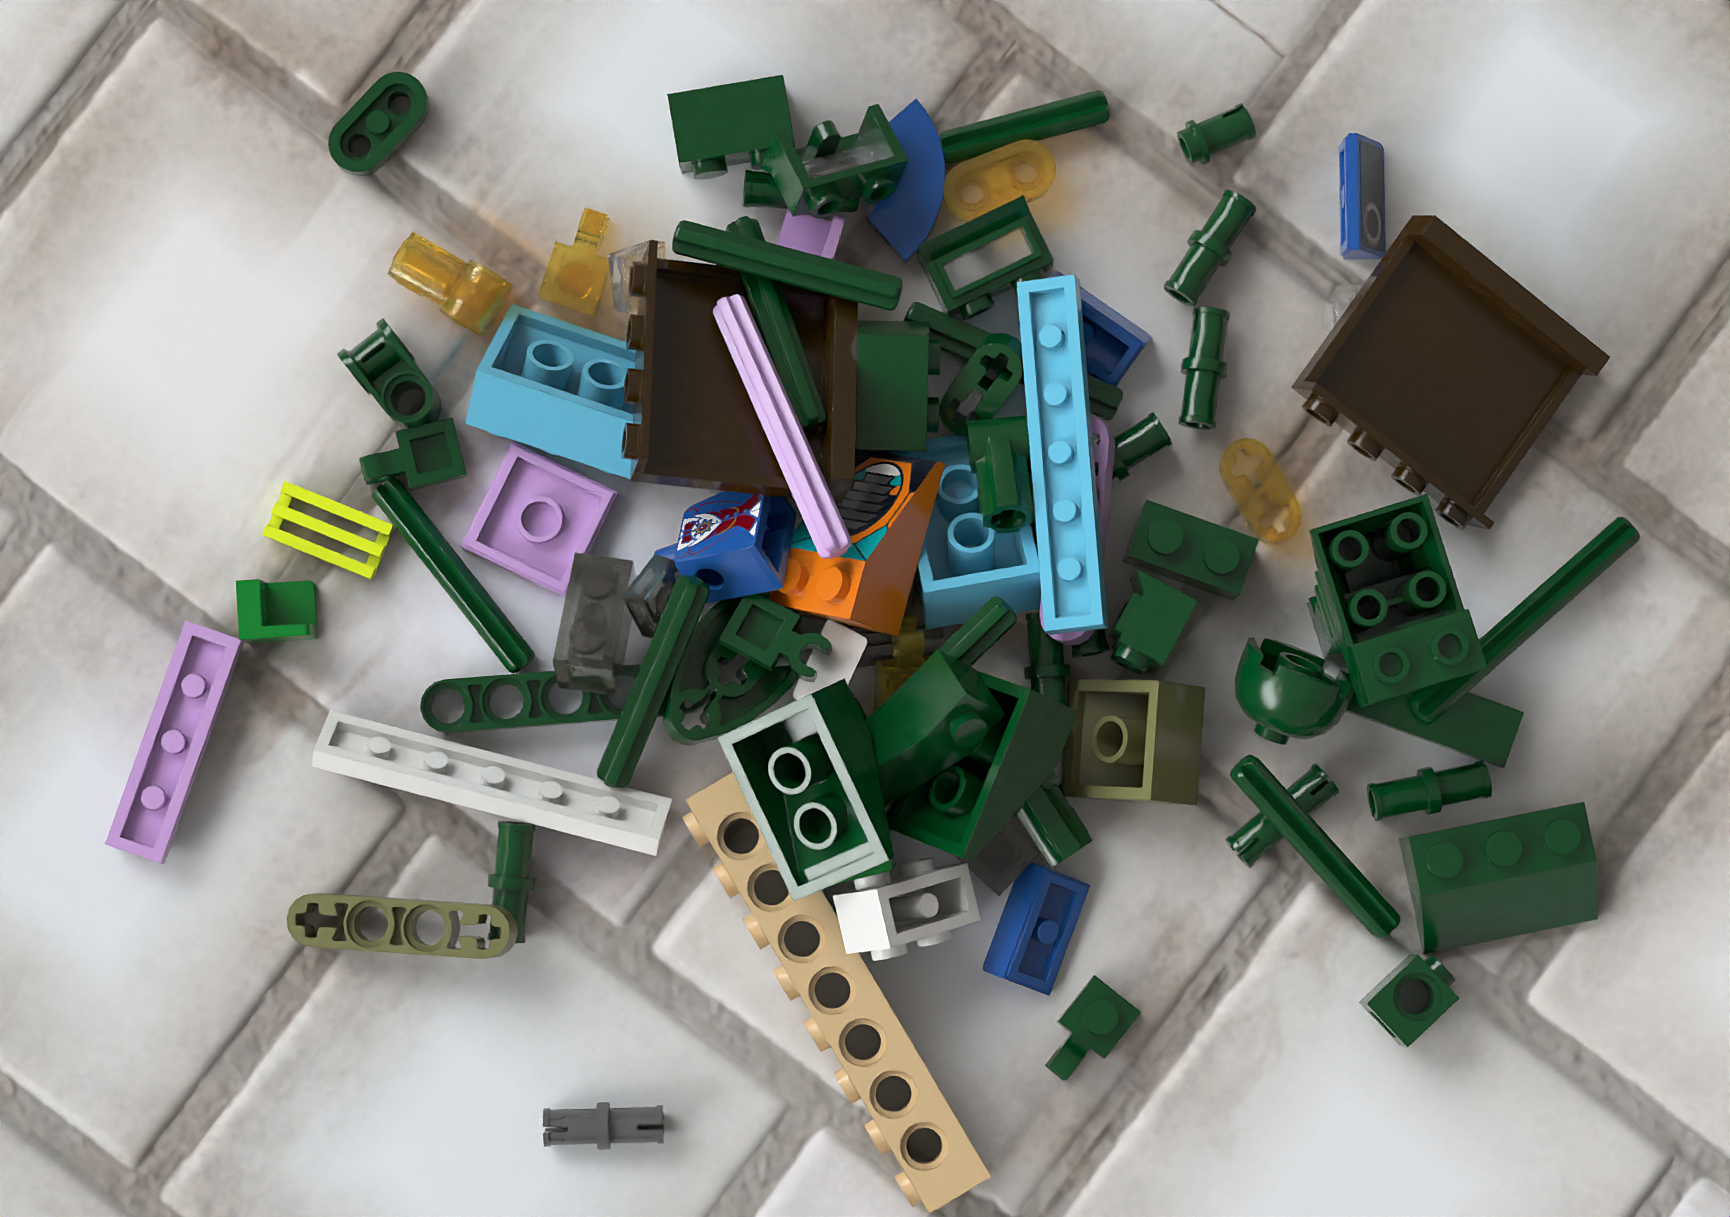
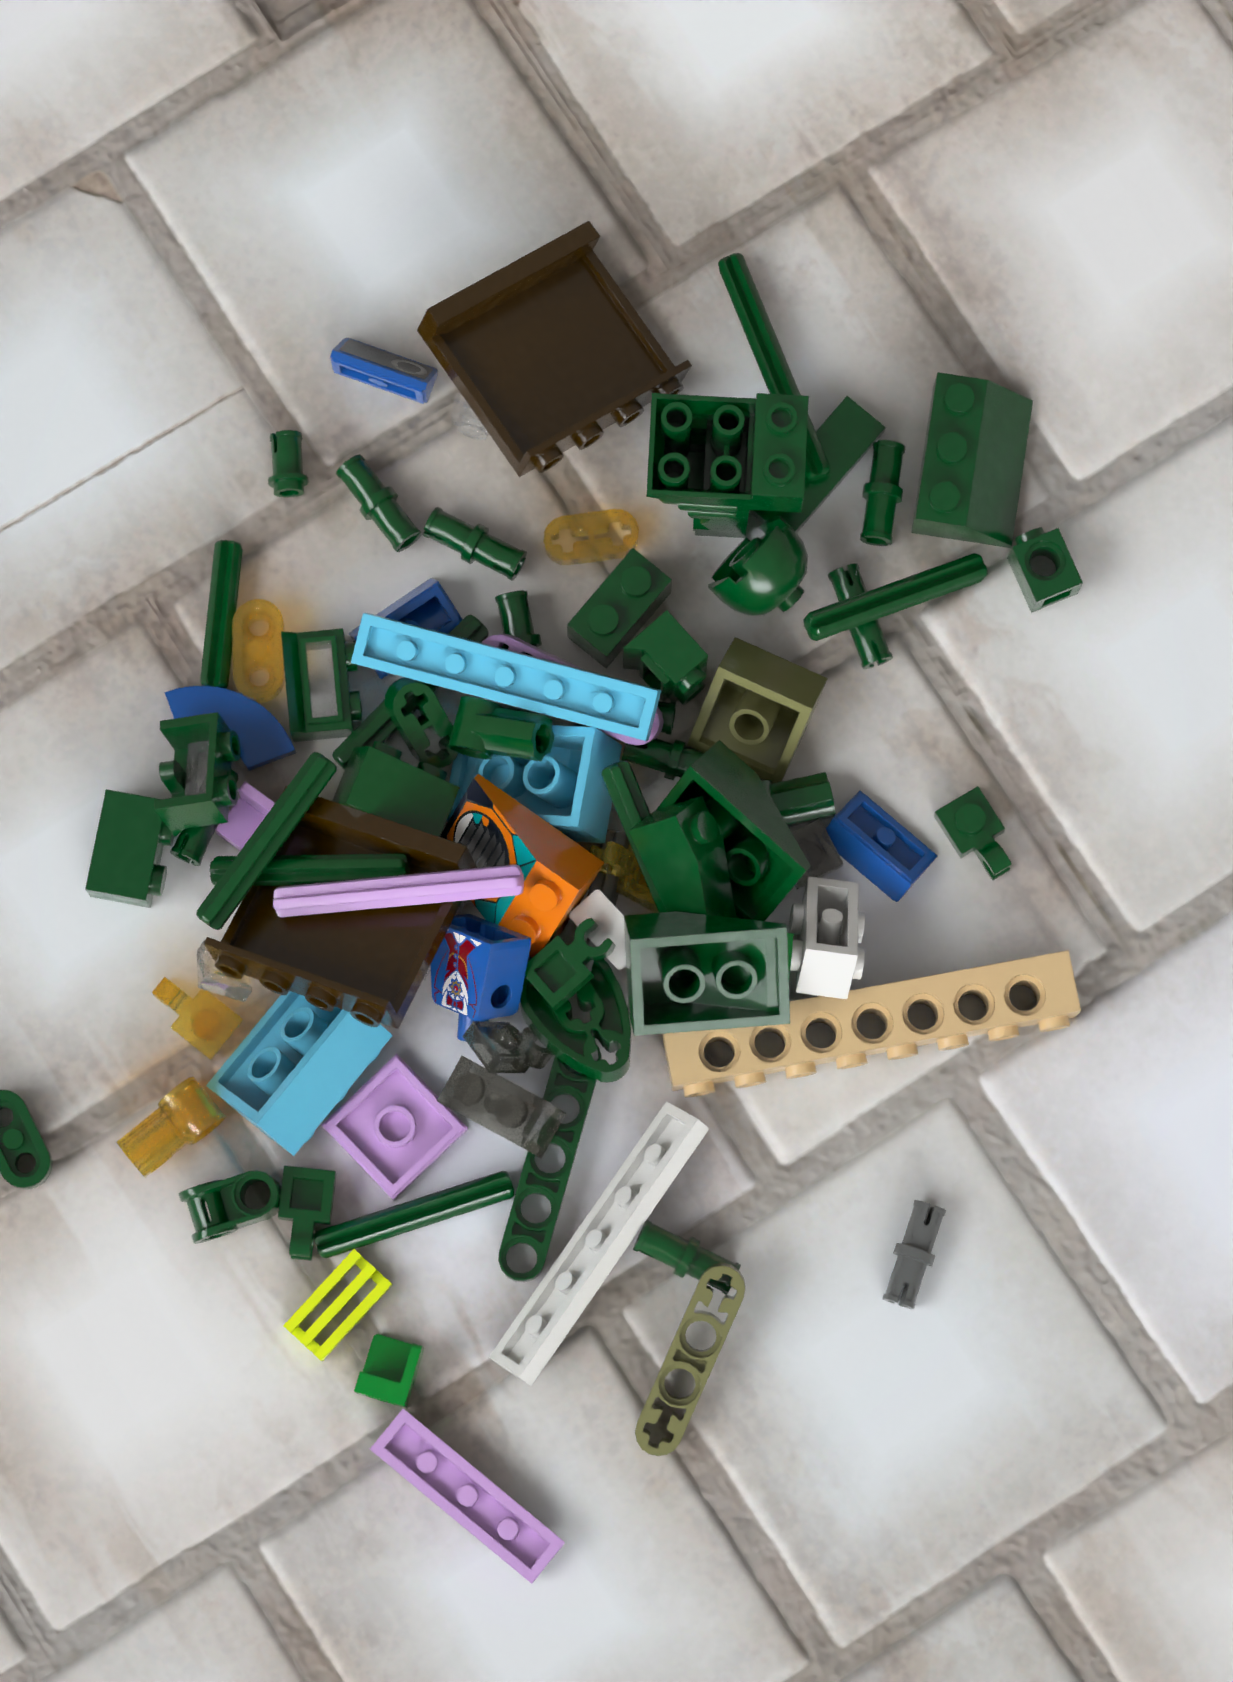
camera: 70 degrees left, 5 degrees down
(653, 681) = (566, 1075): dark green axle -> none

